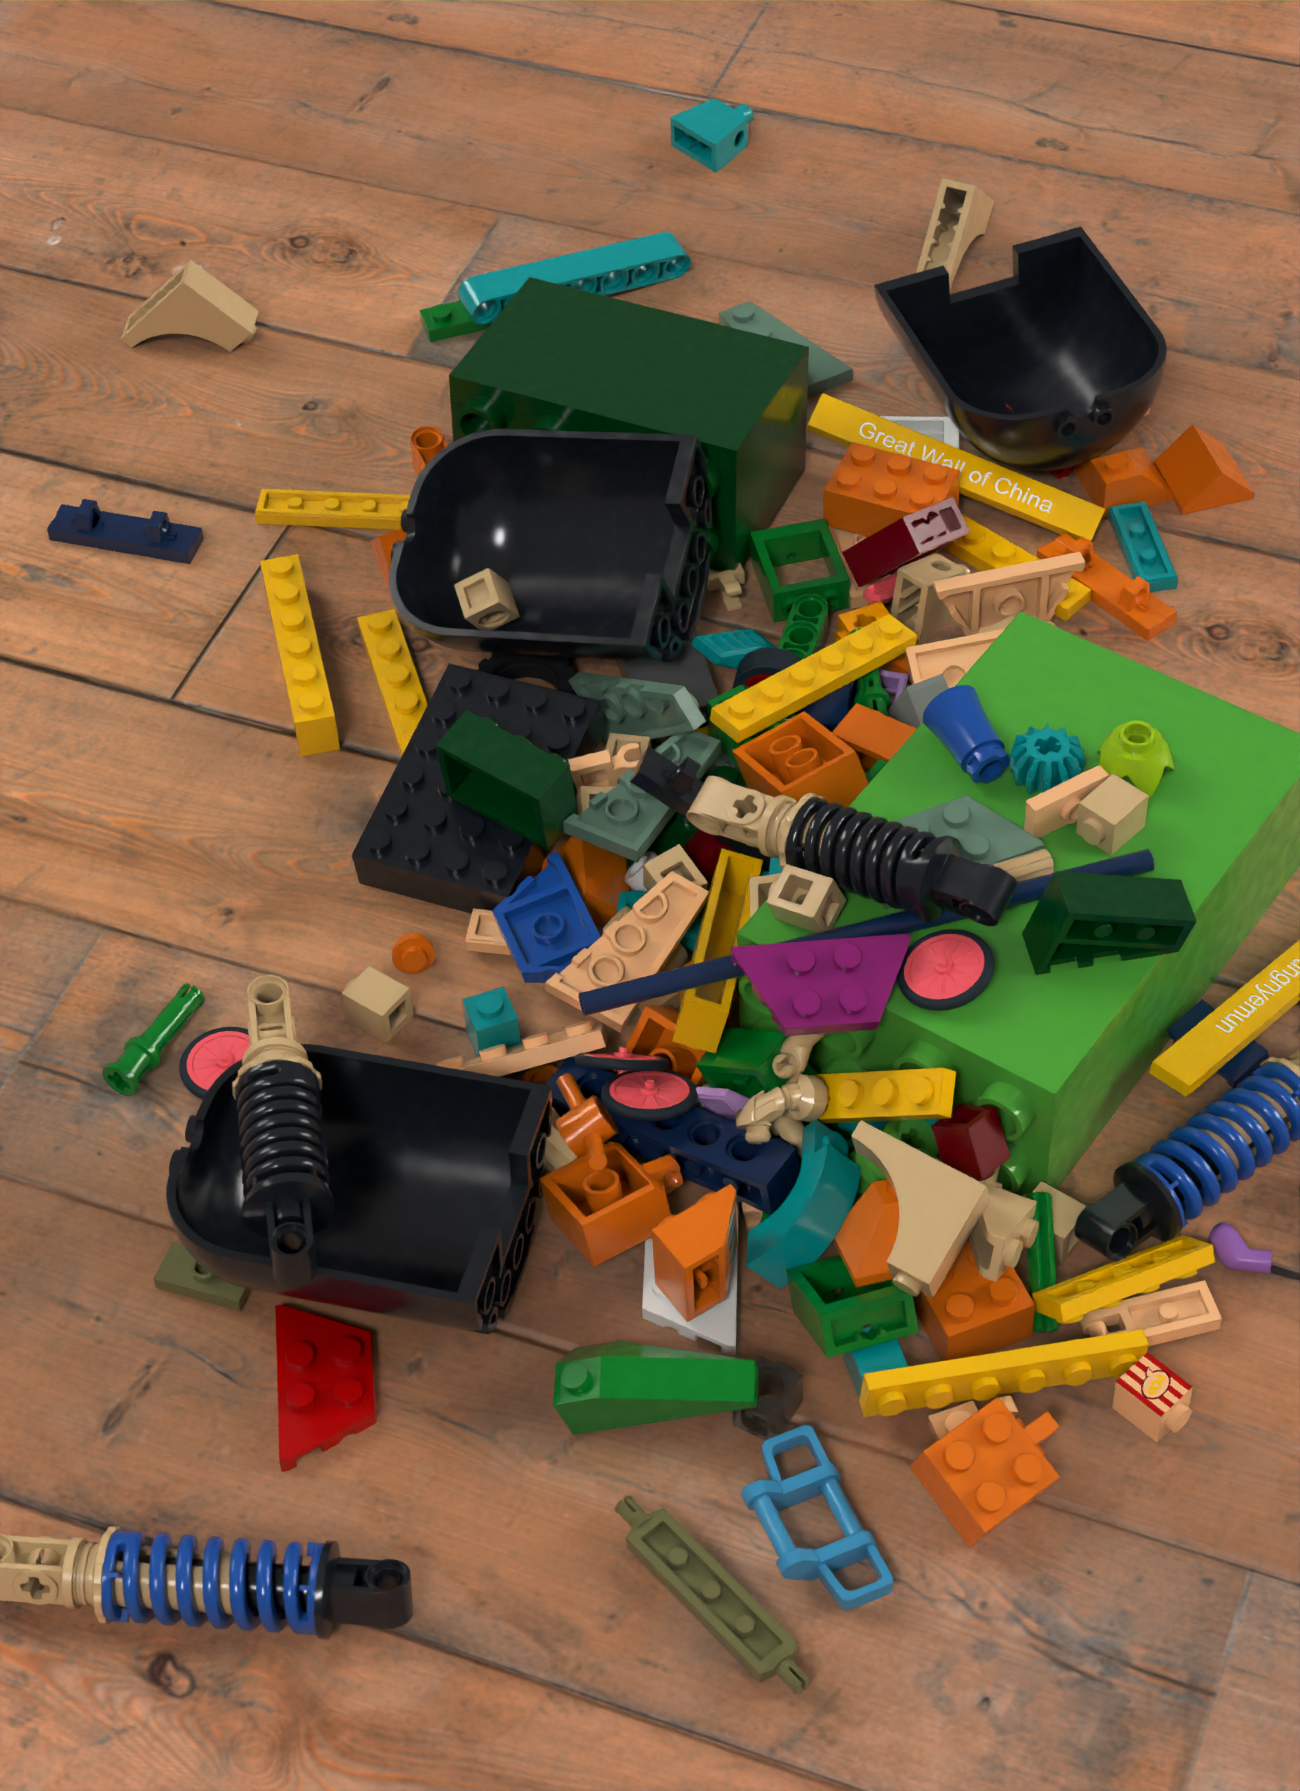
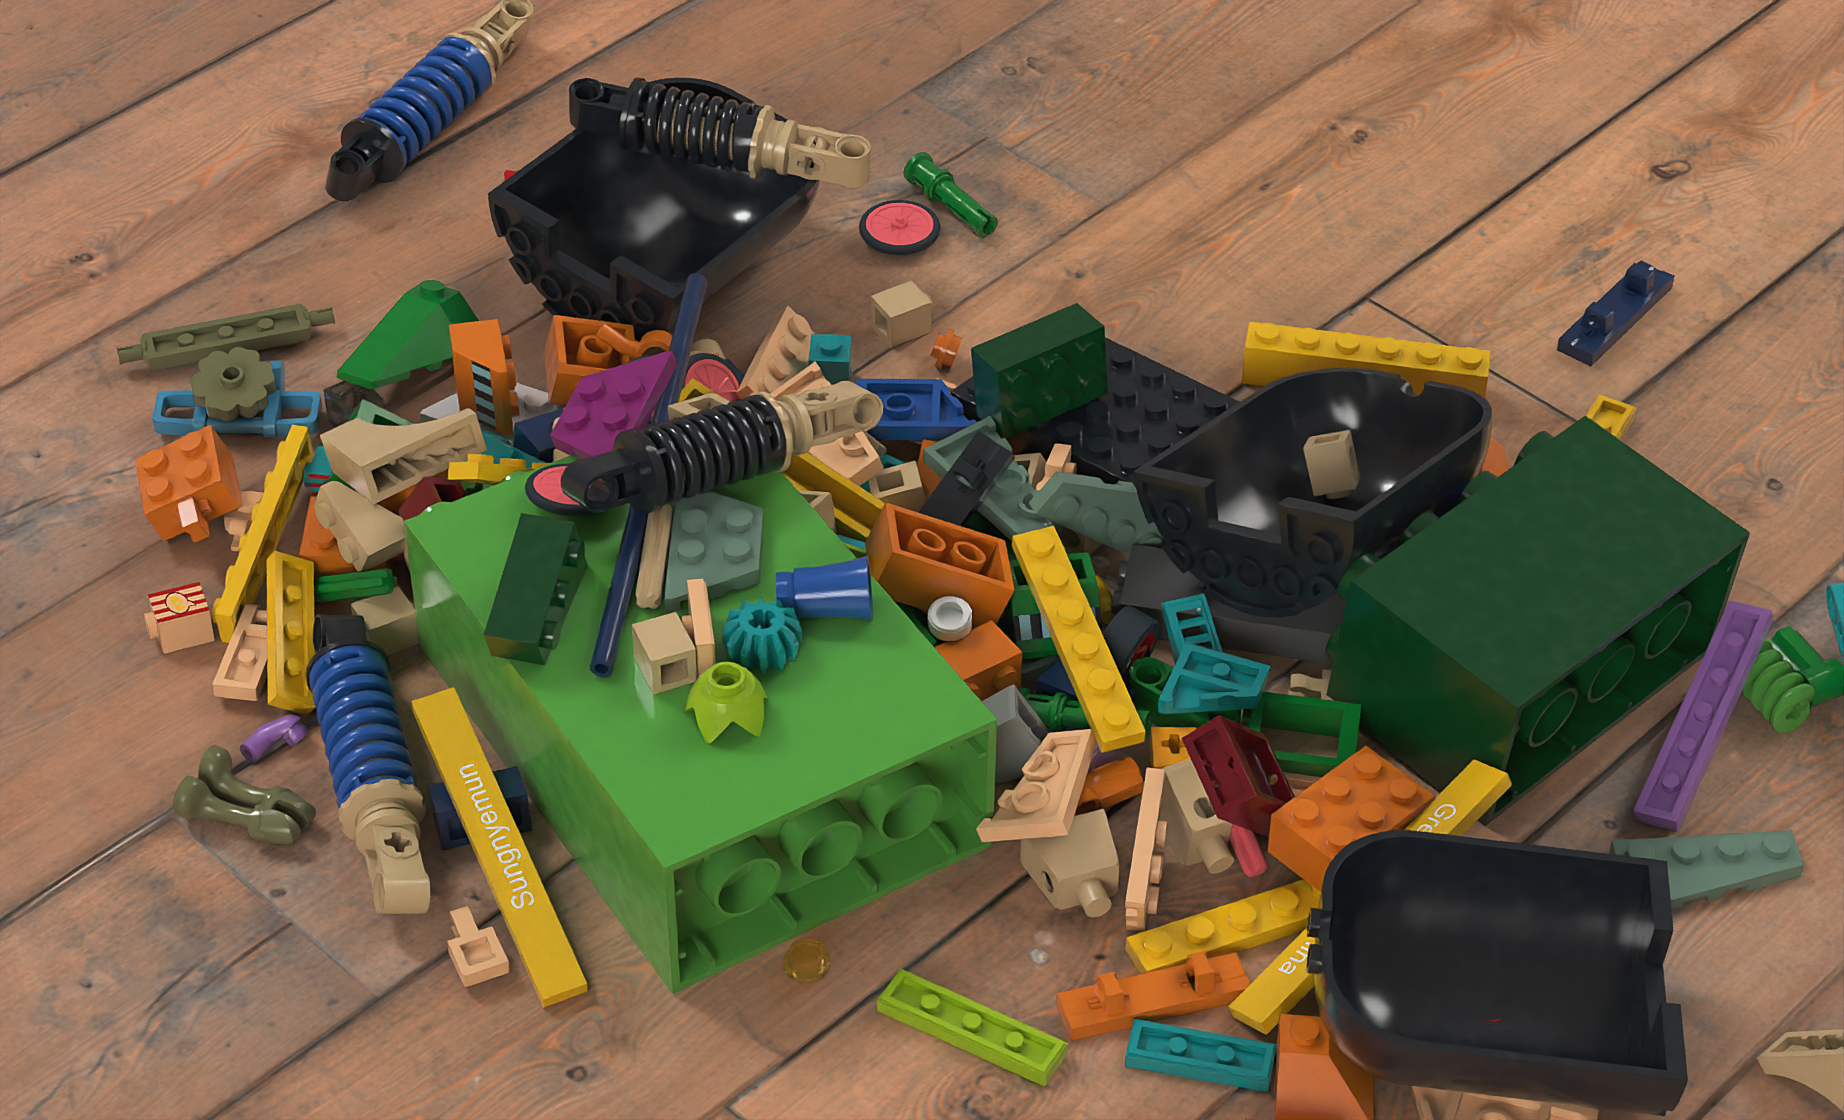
camera: 110 degrees right, 5 degrees down
(795, 606) = (1212, 682): none -> teal wing
(814, 1508) = (233, 384): none -> olive plant
(863, 743) = (949, 618): none -> white tile
(1209, 653) = (972, 1027): none -> lime tile

